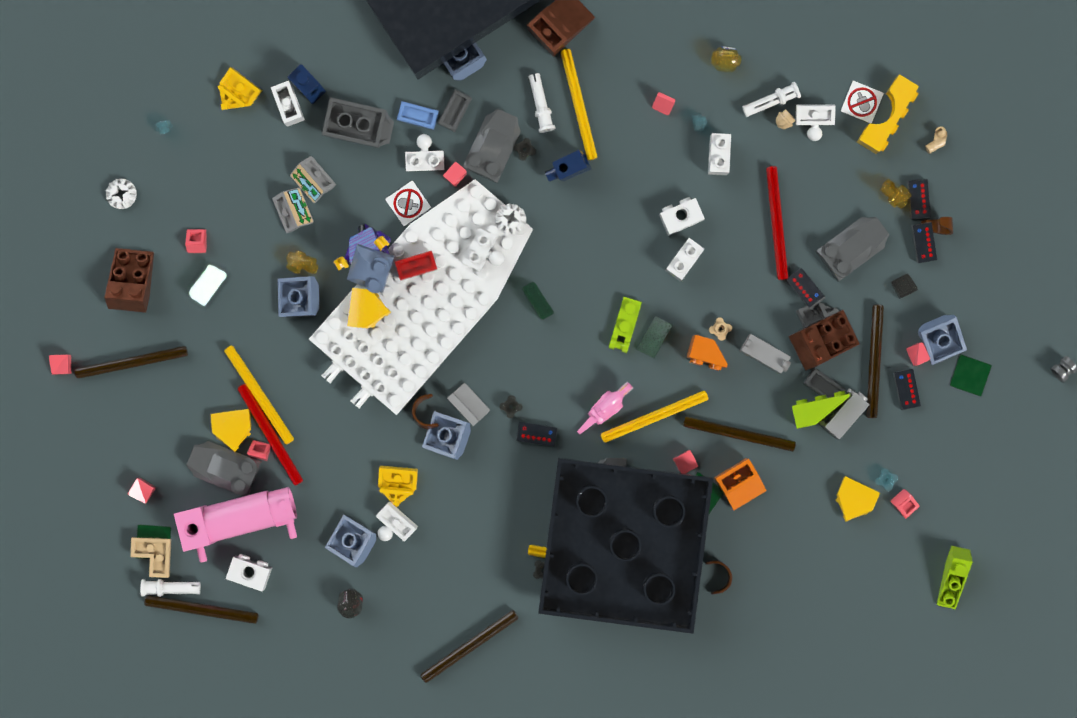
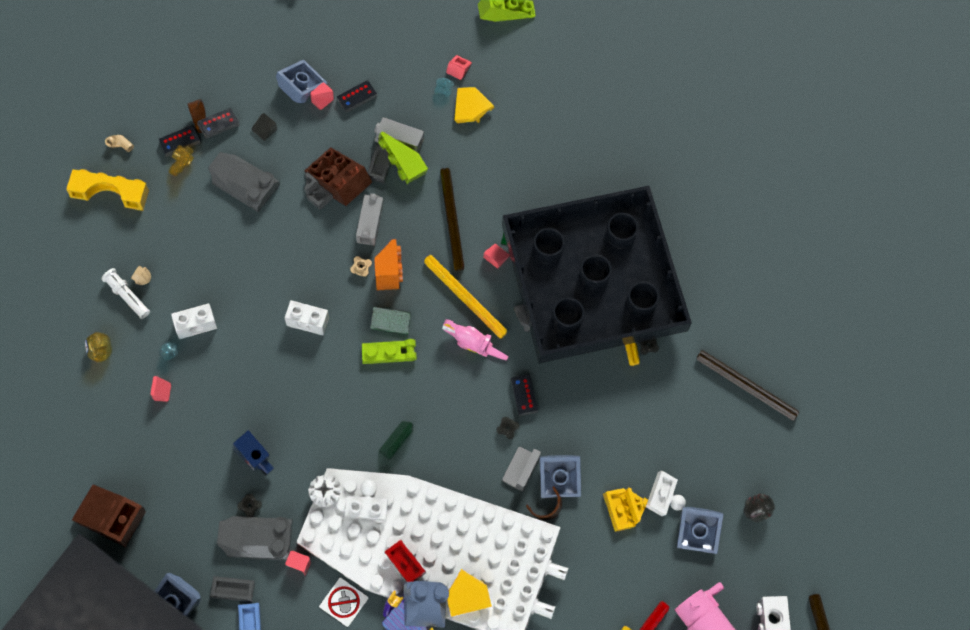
camera: 120 degrees left, 20 degrees down
(425, 159) = (293, 601): white plate -> none
(543, 112) = (206, 500): white pin -> none
(578, 104) = (185, 470): yellow axle -> none
(673, 224) = (263, 325): white brick -> none
(729, 577) = (588, 182): reddish brown helmet -> none
(740, 483) = (495, 200): orange slope -> none
(777, 224) = (242, 251): red axle -> none
(805, 288) = (296, 205): black tile -> none
(815, 116) = (129, 251): white plate -> none
(862, 102) = (103, 217): sticker -> none
(875, 360) = (338, 130): dark brown axle -> none
(970, 375) = (324, 52): dark green sticker -> none

